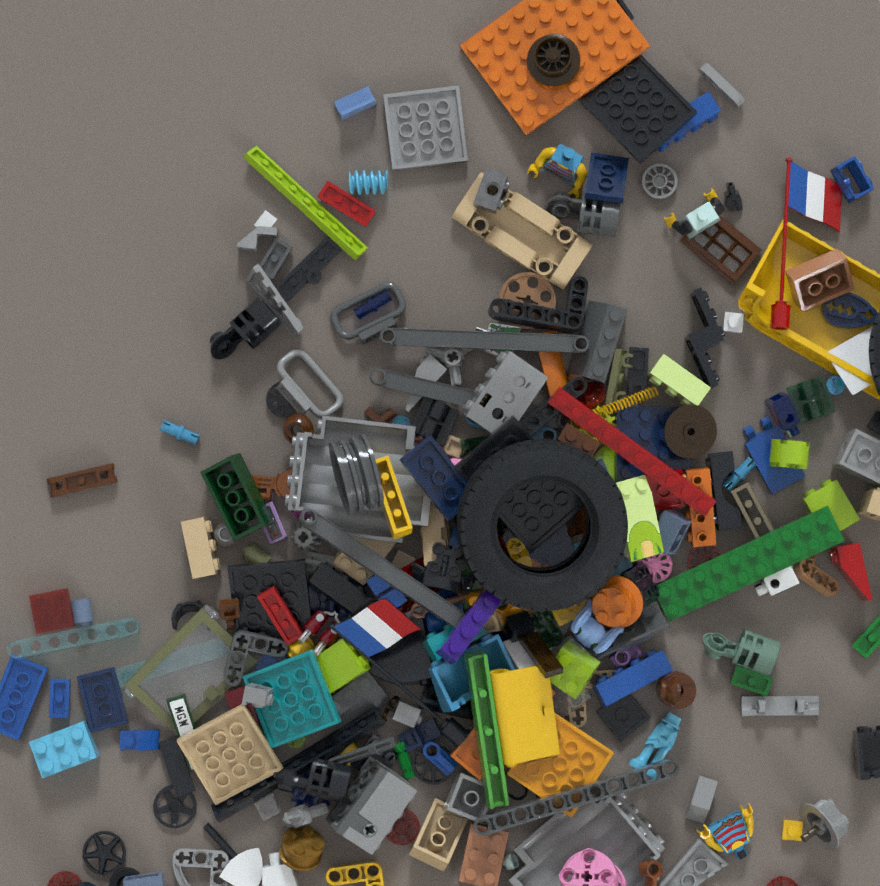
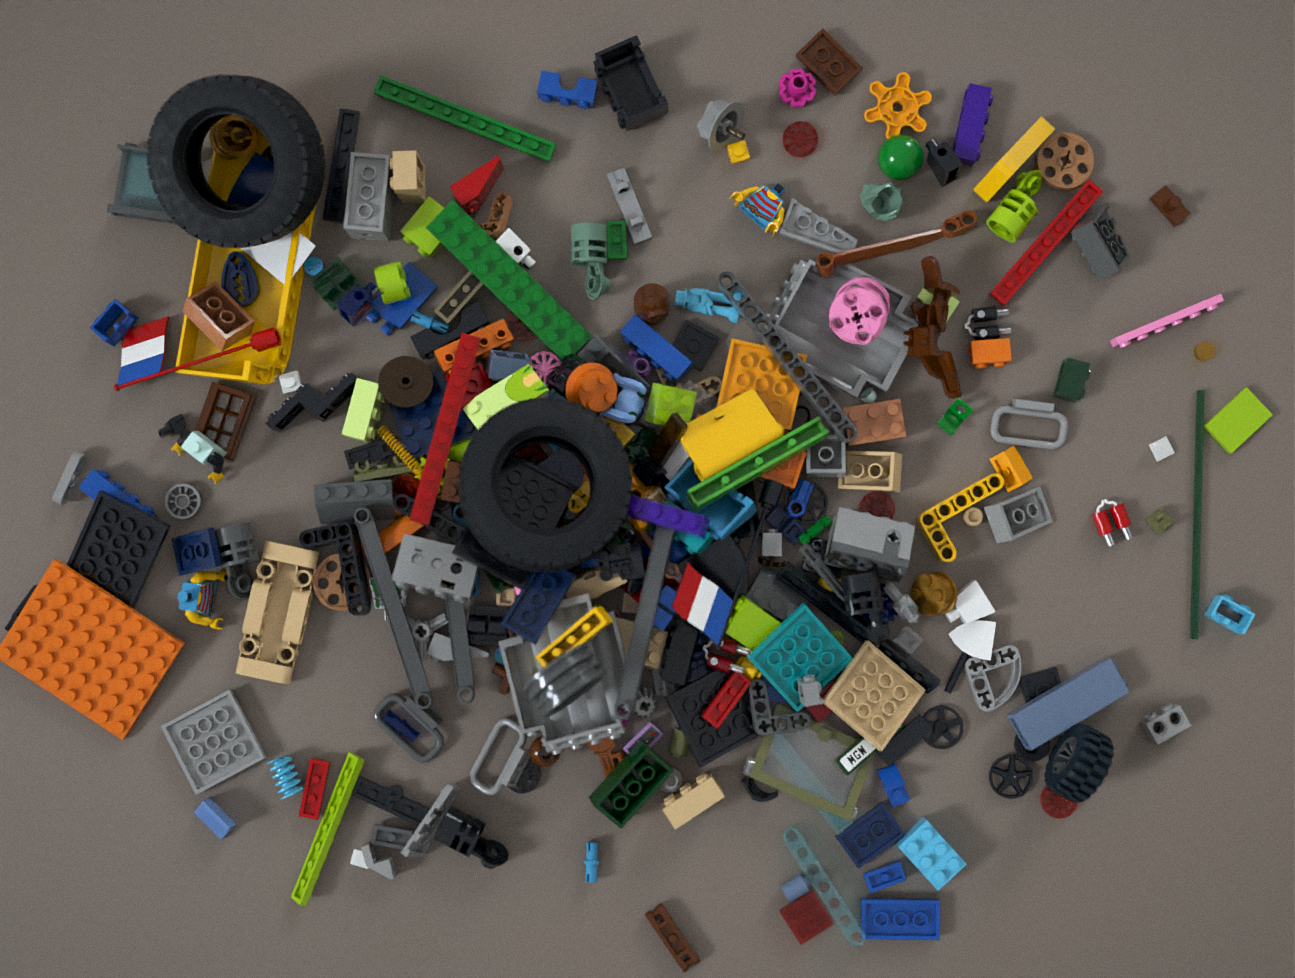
camera: 110 degrees left, 0 degrees up
(229, 610) = (741, 749): reddish brown plate -> none
(491, 179) = (236, 656): flat silver brick -> none
(553, 60) = (101, 645): dark brown piece -> none
(701, 799) = (743, 243): light grey slope -> none

